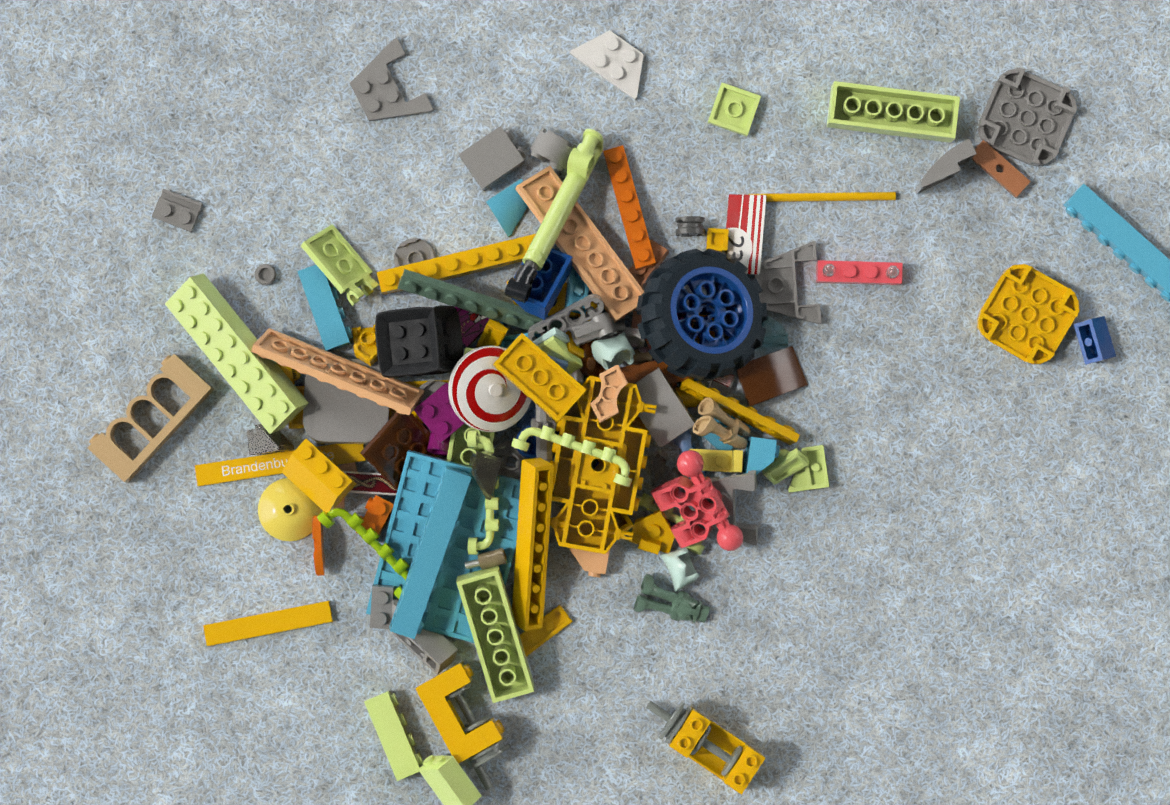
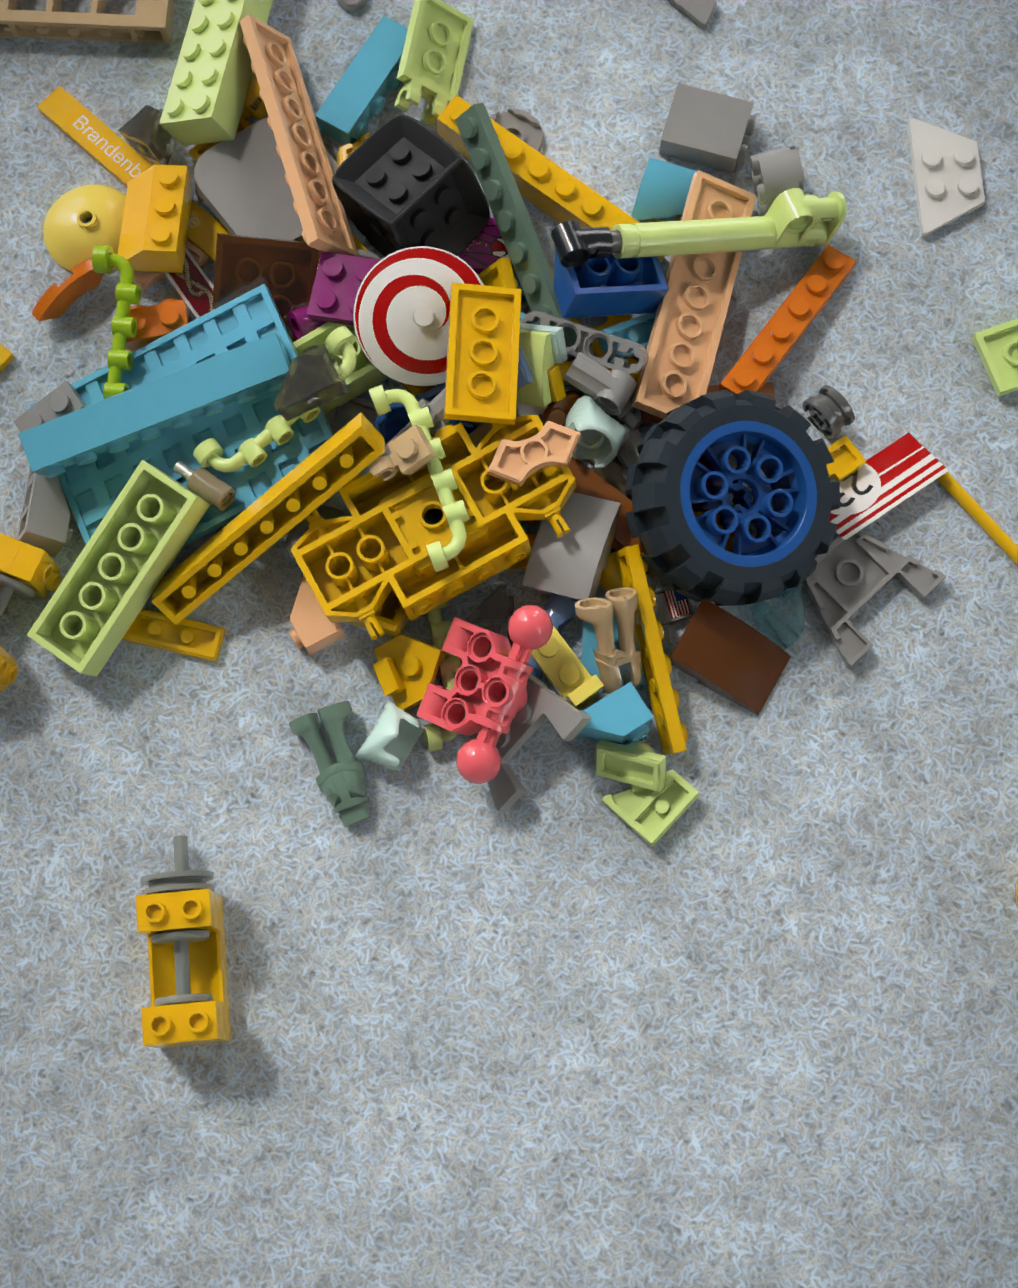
camera: 55 degrees right, 10 degrees down
(561, 454) = (408, 454): none -> tan plate
(859, 272) = (955, 663): coral piece -> none

